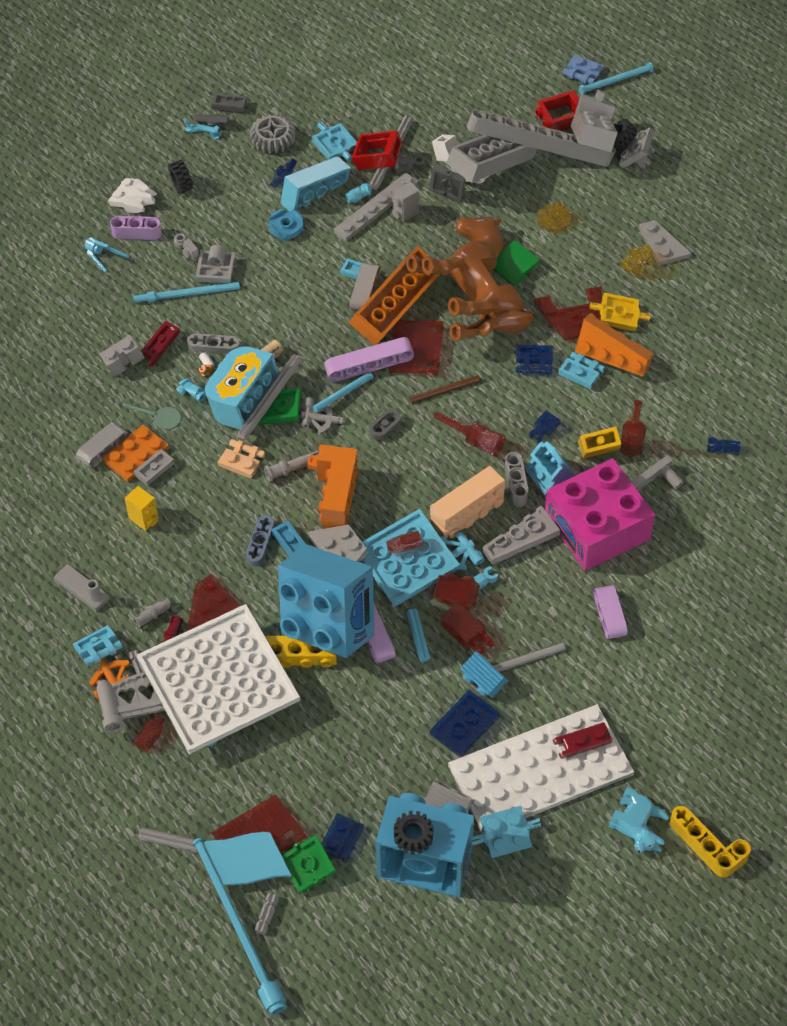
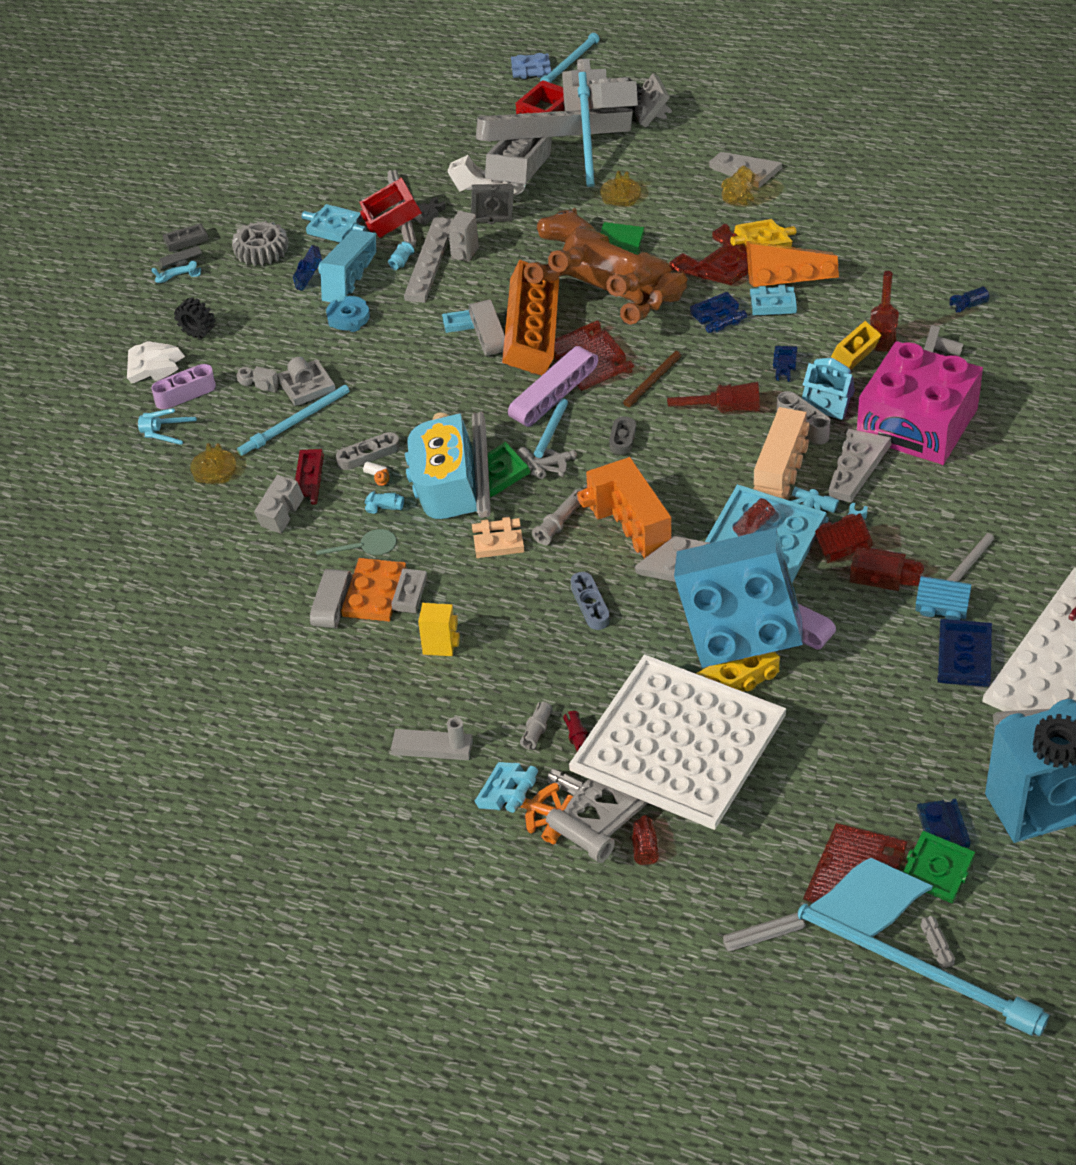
camera: 30 degrees left, 10 degrees down
(109, 301) = (213, 465): none -> clear yellow plate
(209, 602) = (592, 685): clear red plate -> none
(288, 538) = (632, 586): dark azure plate -> none
(418, 635) = (838, 601): medium azure axle -> none
(574, 123) = (583, 94): none -> medium azure bar
(610, 611) = (1006, 483): lavender beam -> none

